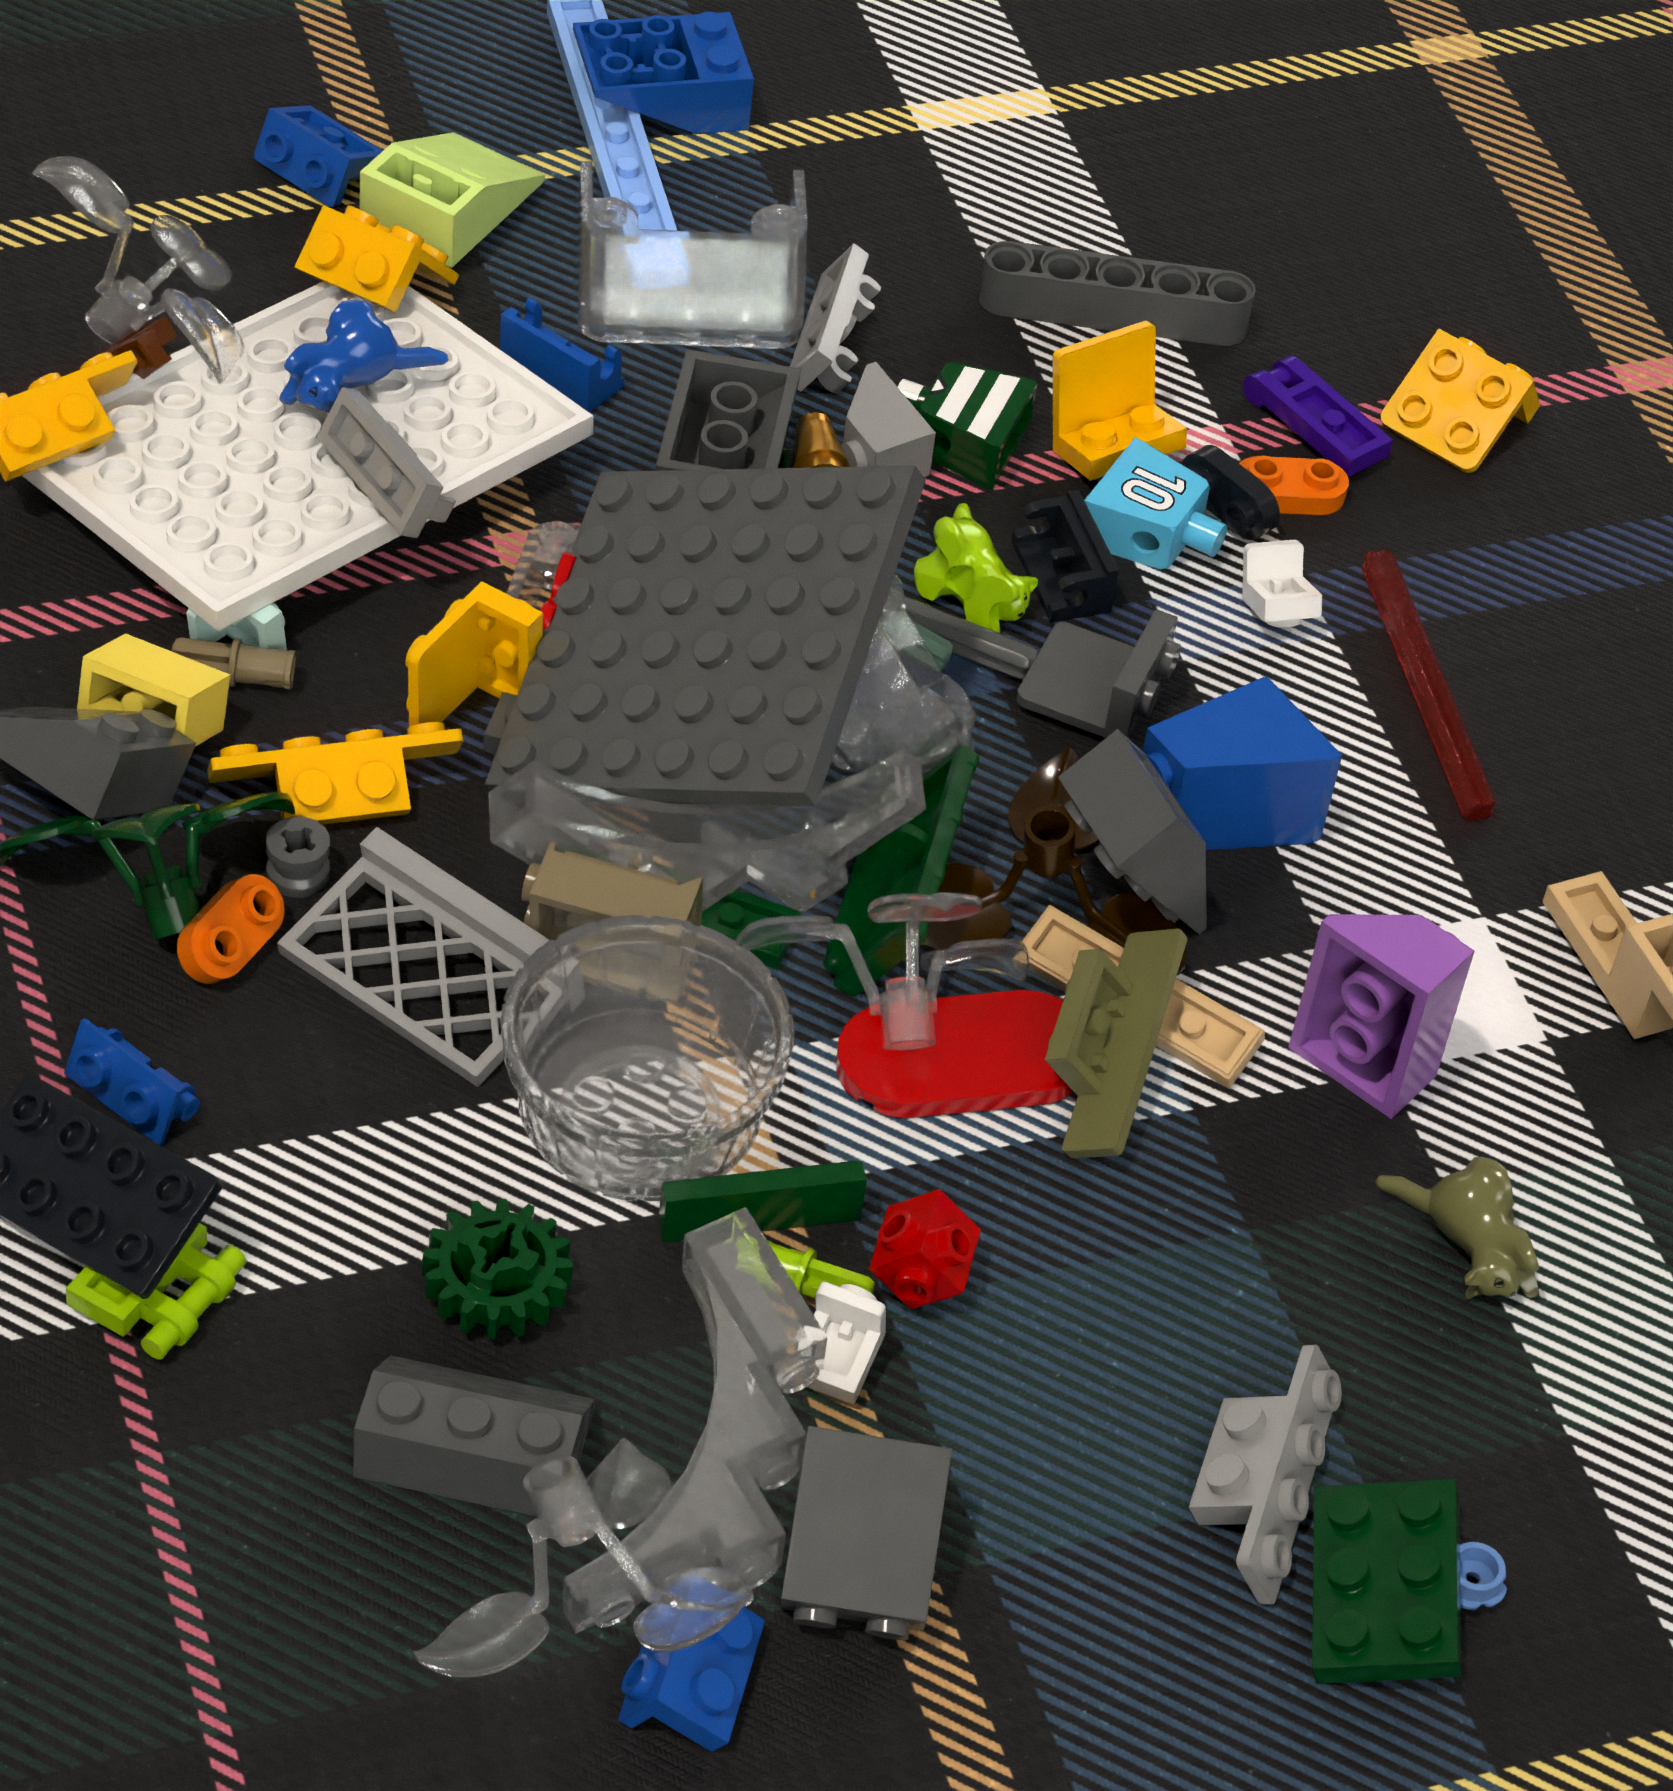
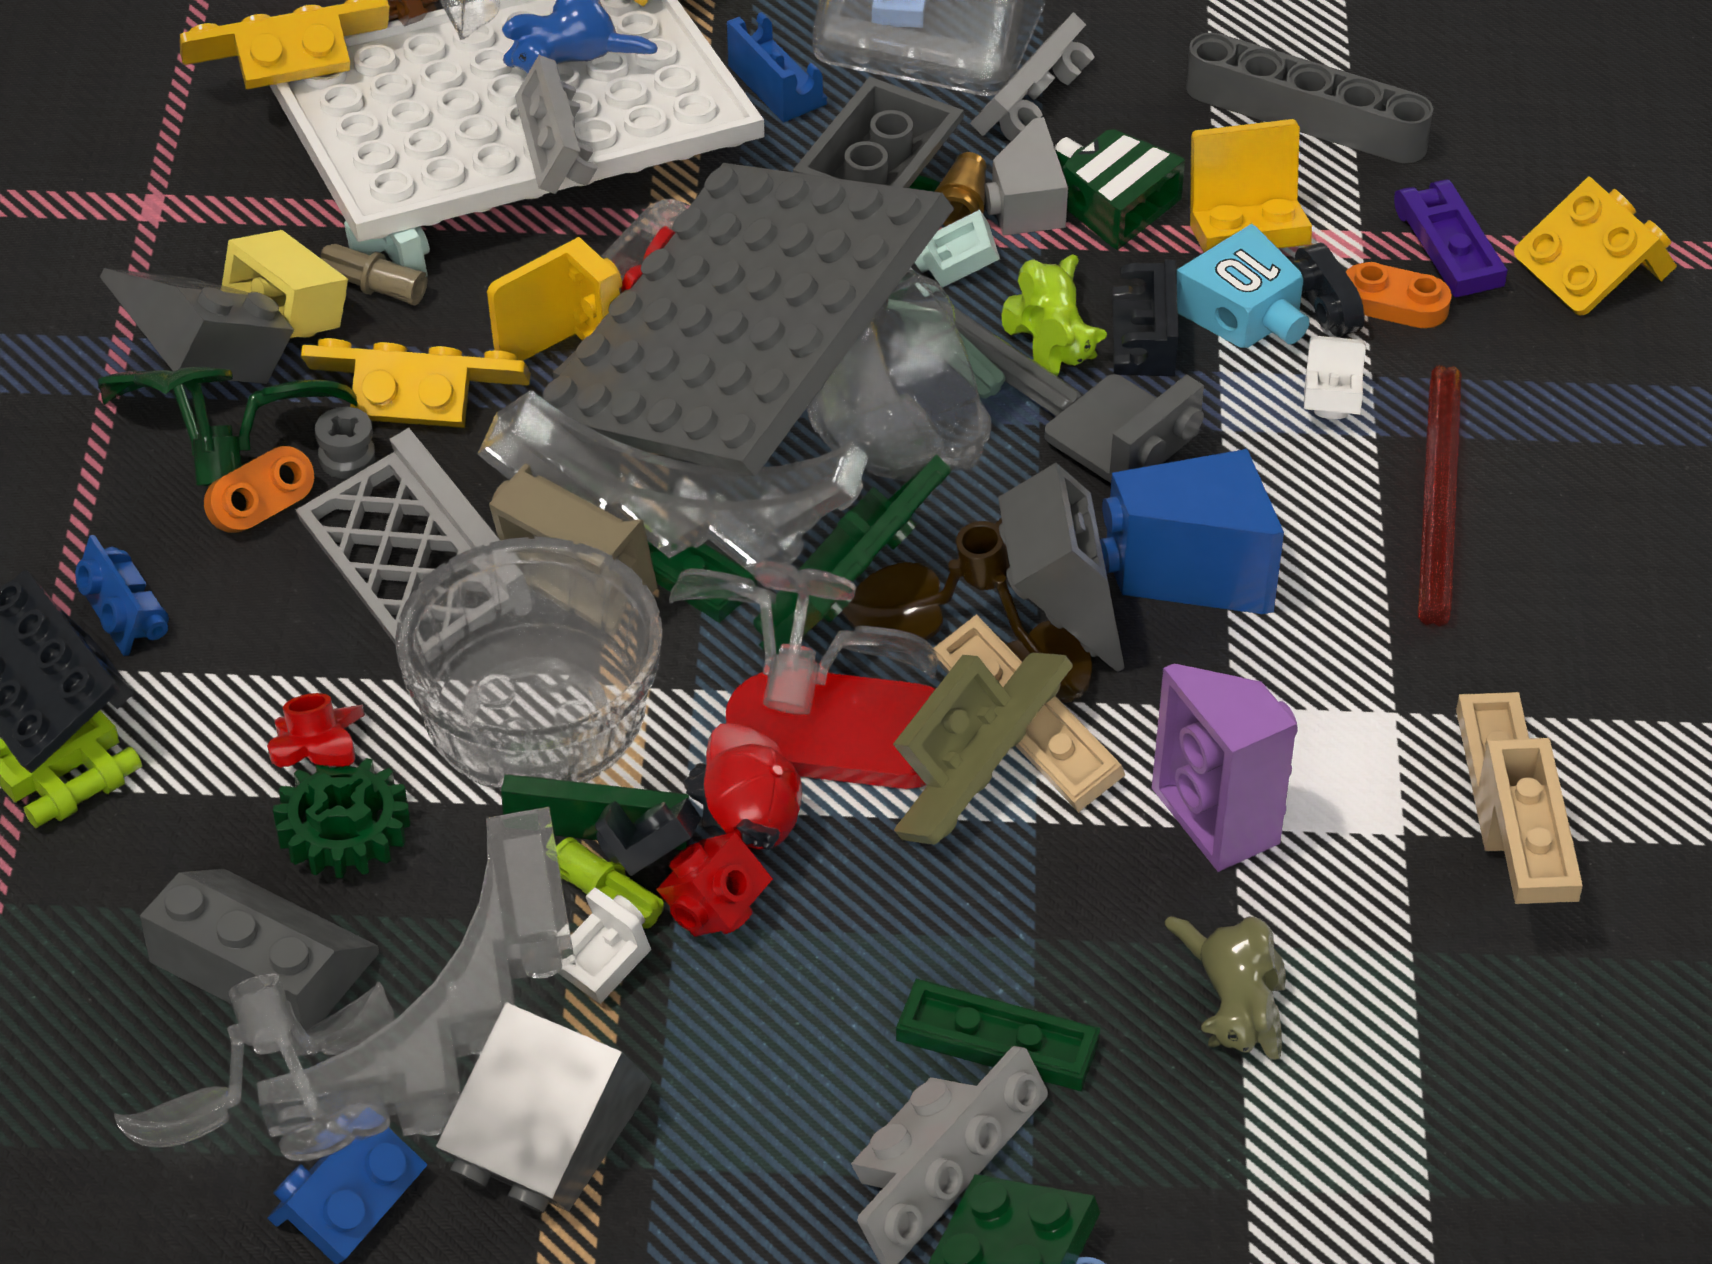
camera: 25 degrees right, 0 degrees up
(425, 1182) = (314, 731): none -> red animal
(847, 1216) = (654, 835): none -> black bracket
(916, 1137) = (746, 786): none -> red hair
(1260, 1336) = (987, 1028): none -> dark green tile

